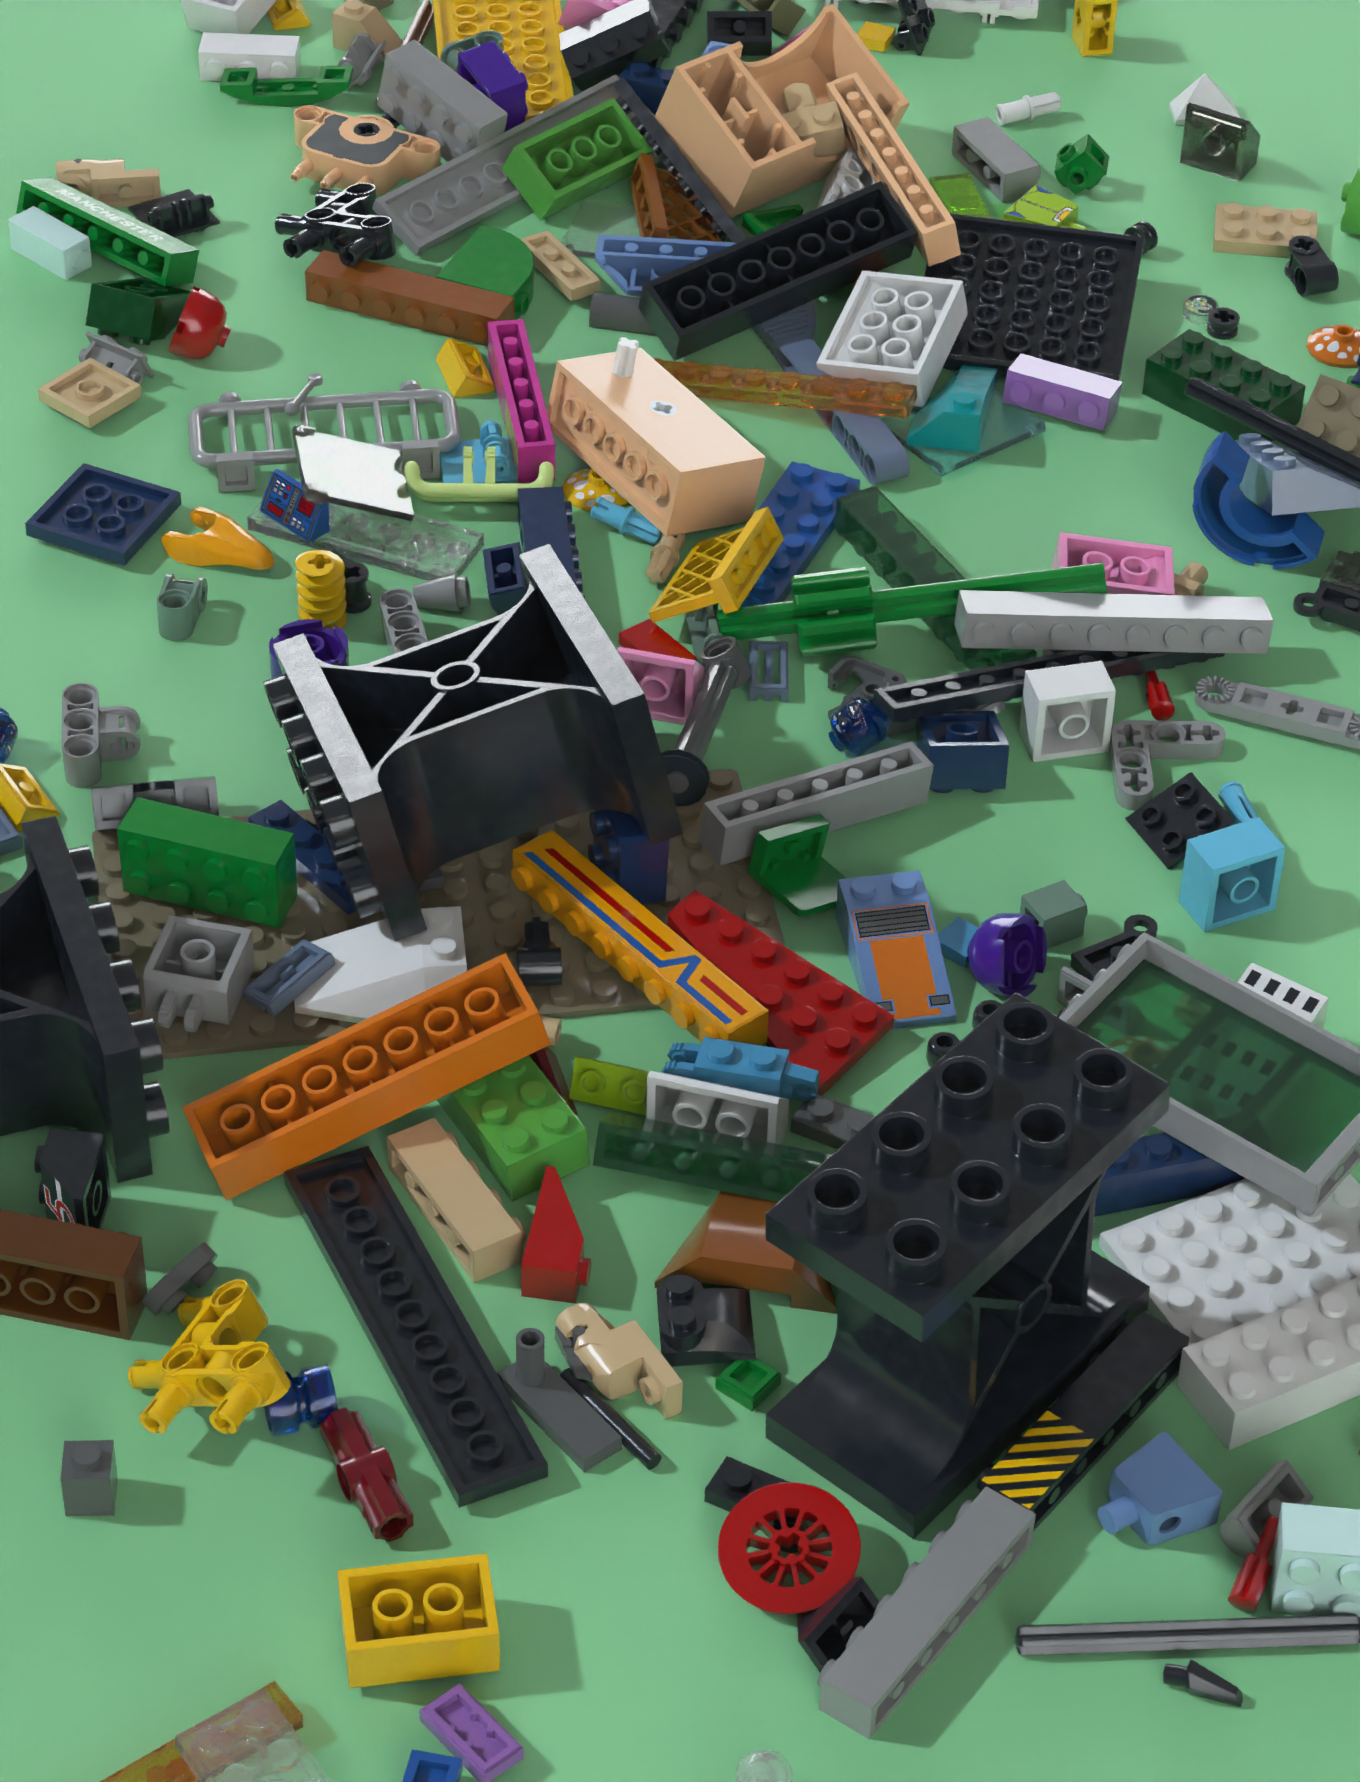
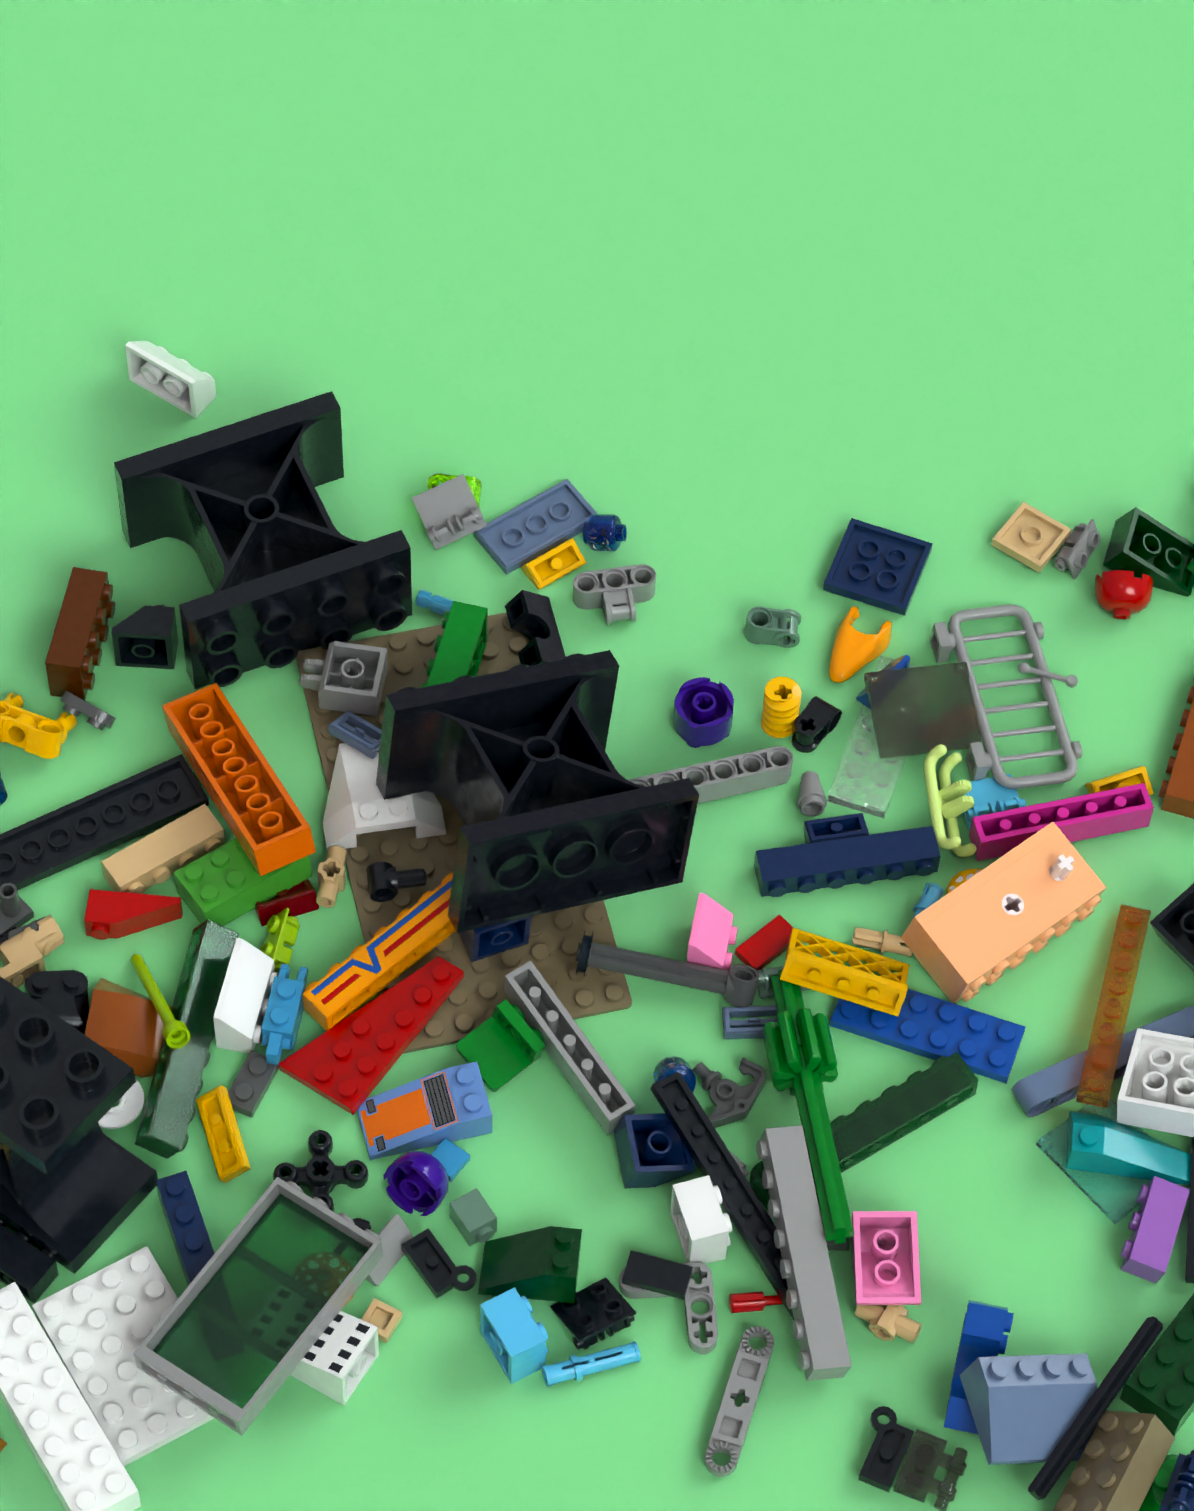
camera: 85 degrees right, 15 degrees up
(792, 1151) = (174, 1032): none -> lime piece
(1125, 857) = (535, 1262): none -> dark green slope
(1134, 757) = (657, 1275): none -> black tile

